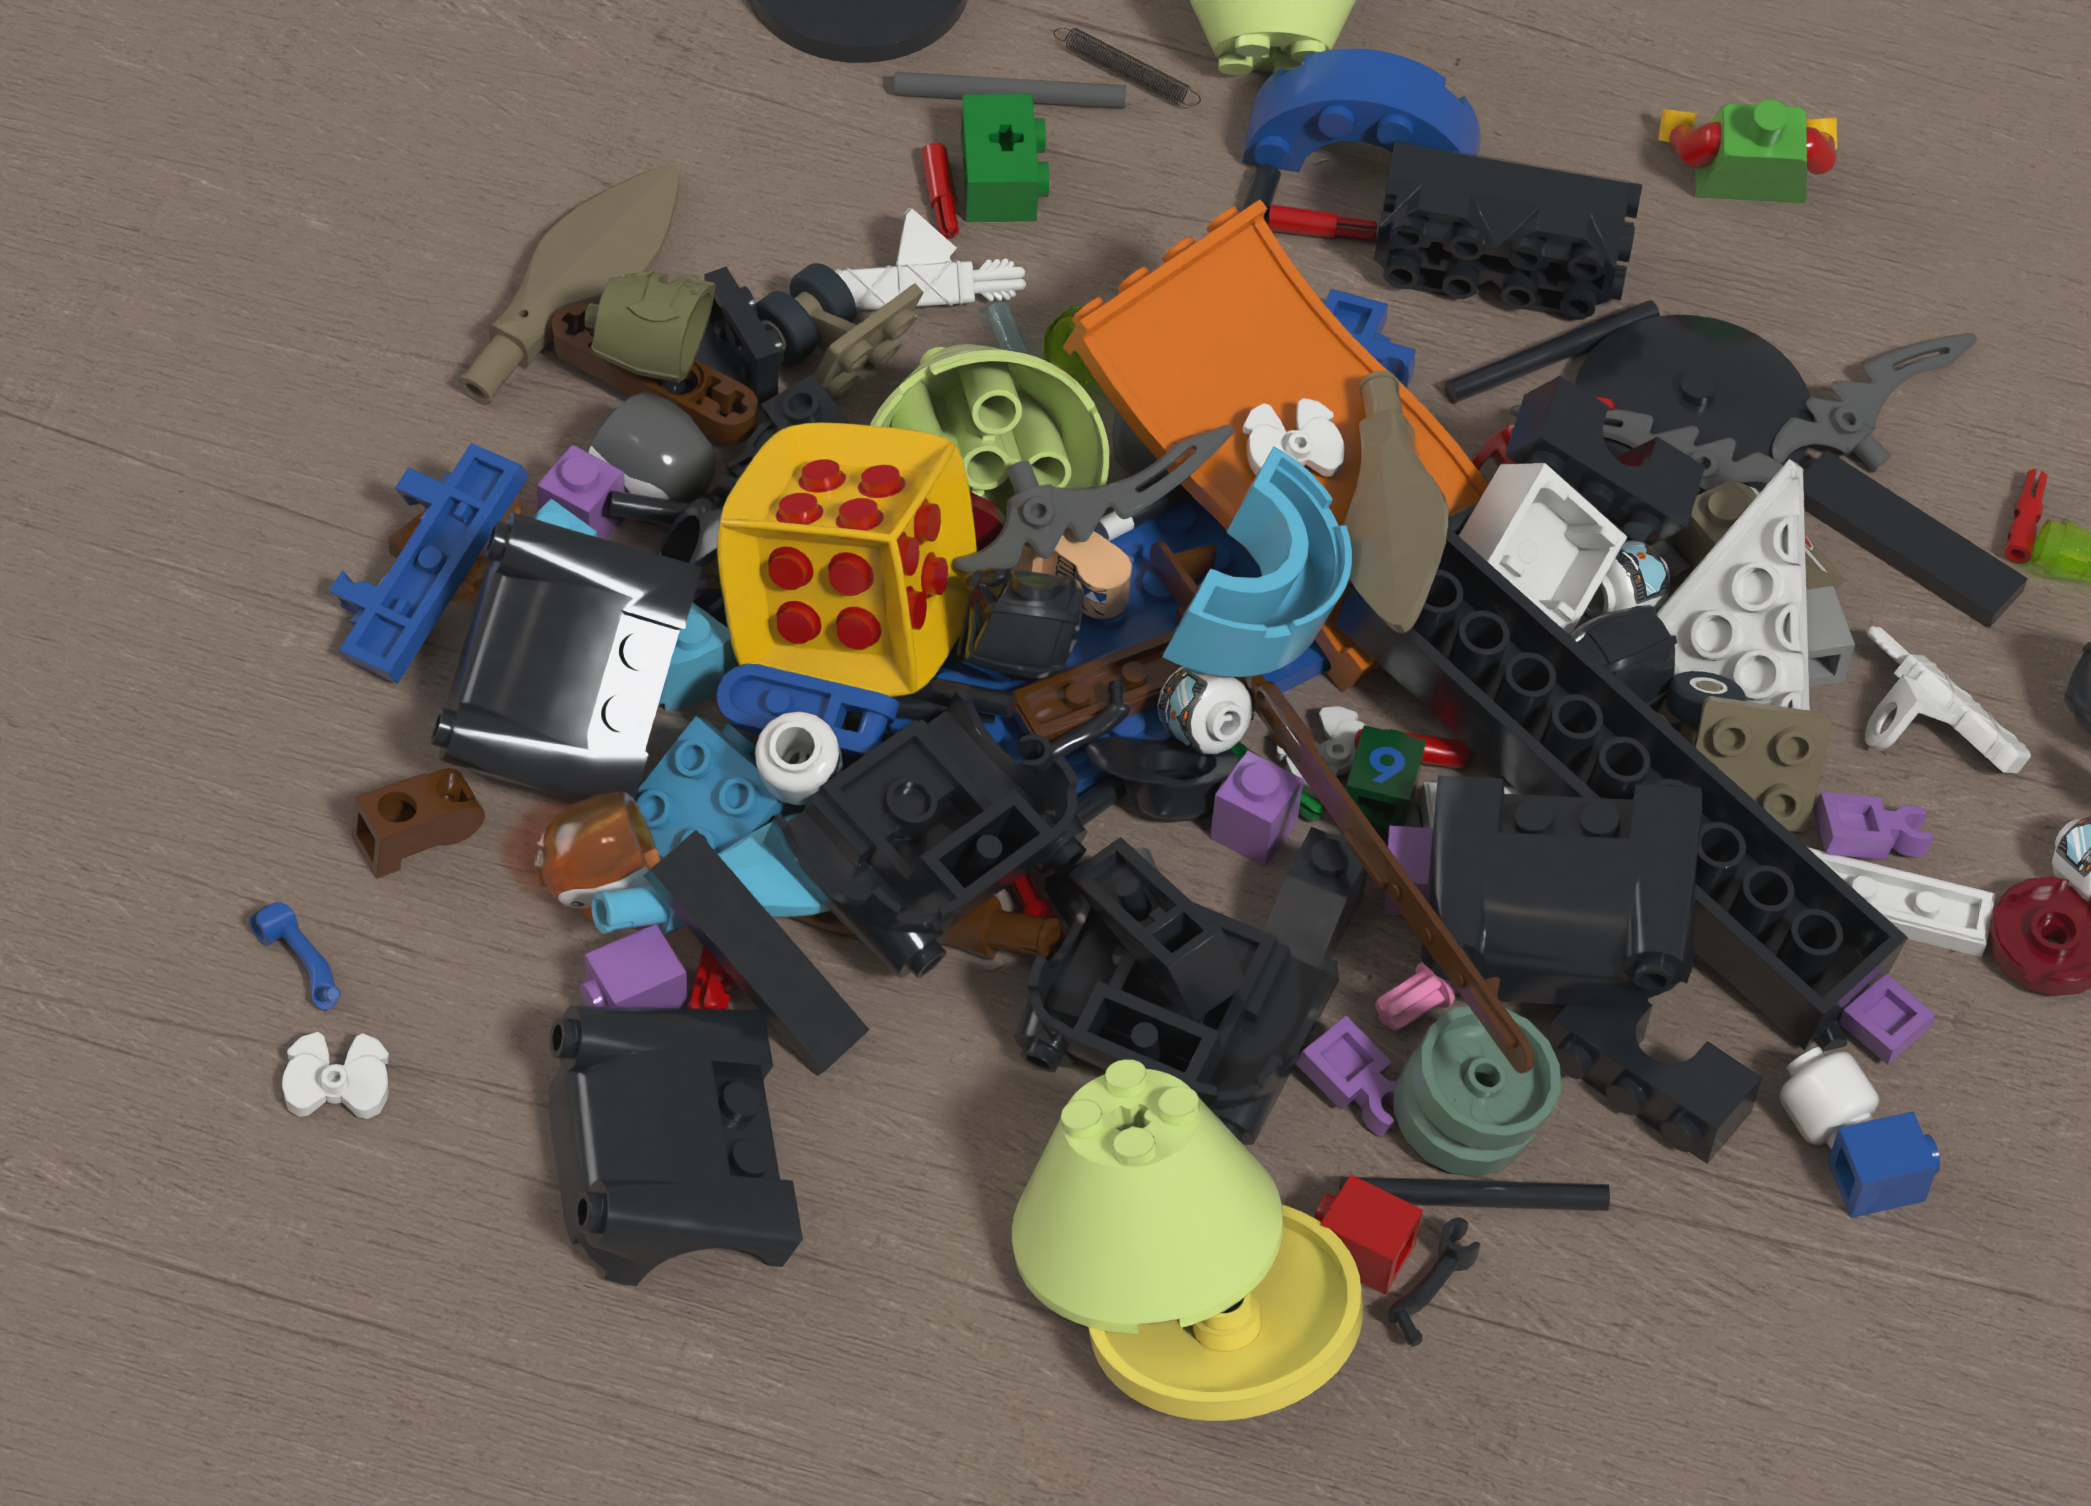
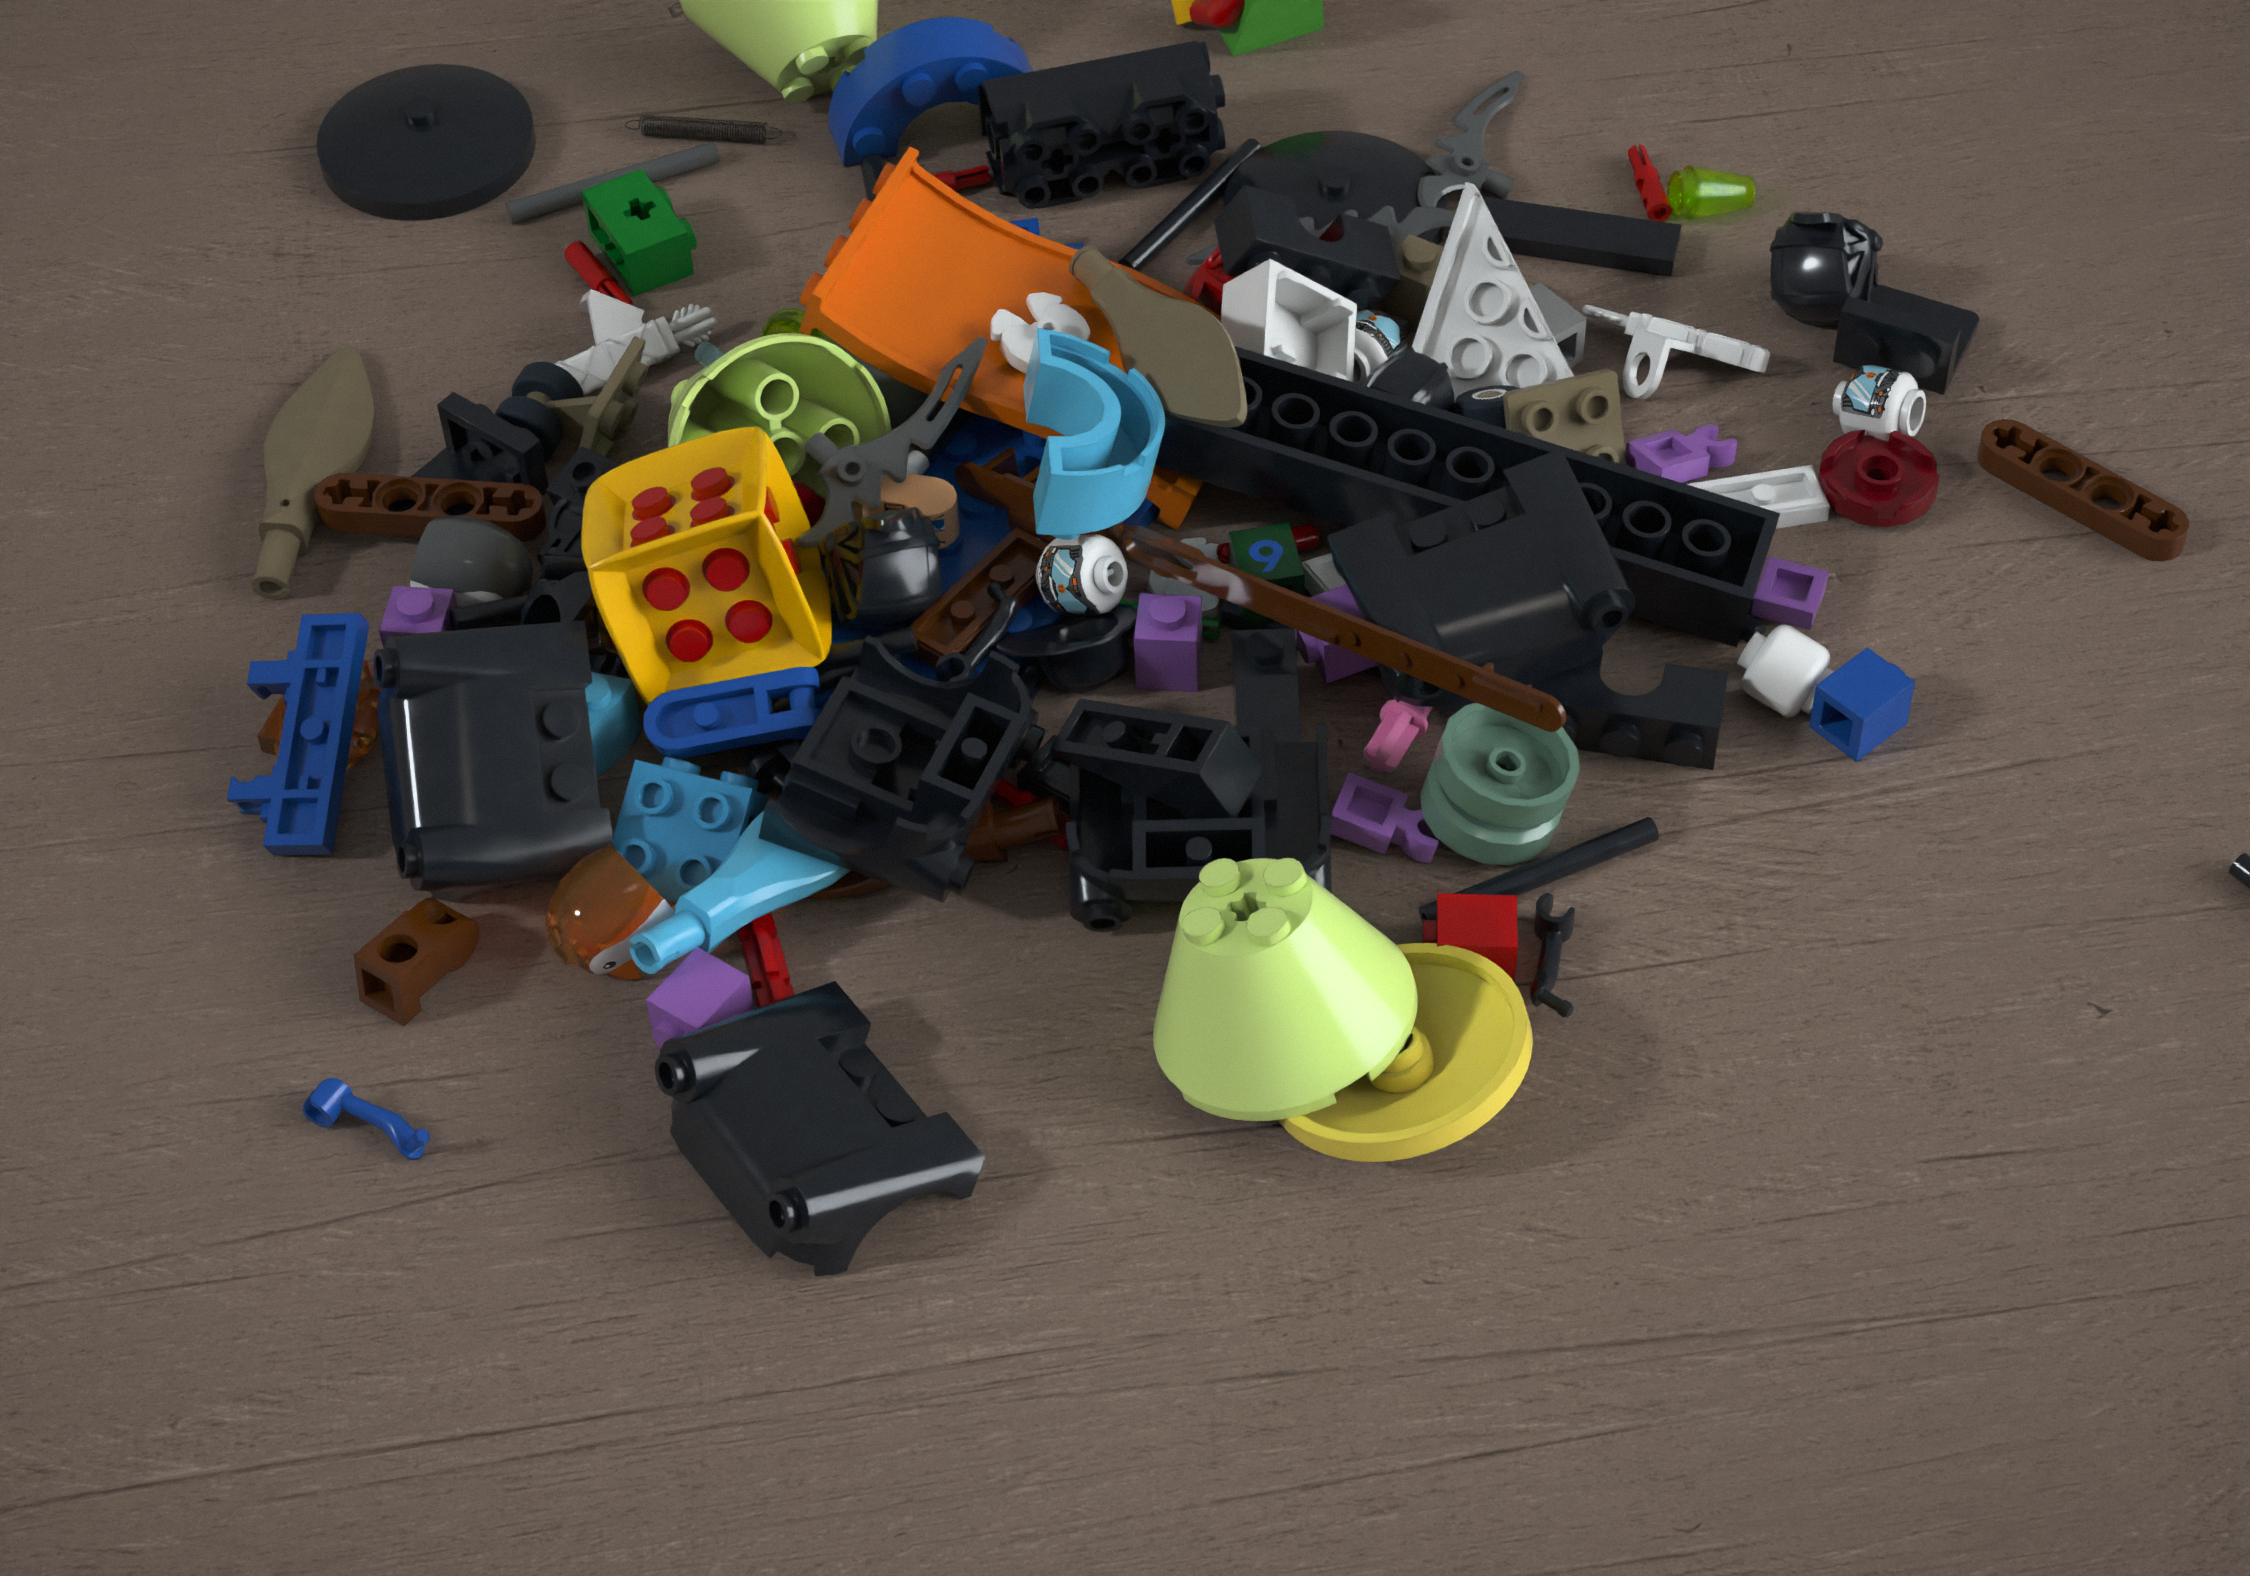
camera: 20 degrees left, 5 degrees down
(357, 1083) = (442, 1223): white piece -> none
(651, 323) = (412, 457): olive helmet -> none
(756, 952) = (803, 931): black tile -> none
(794, 739) = (754, 748): white head -> none

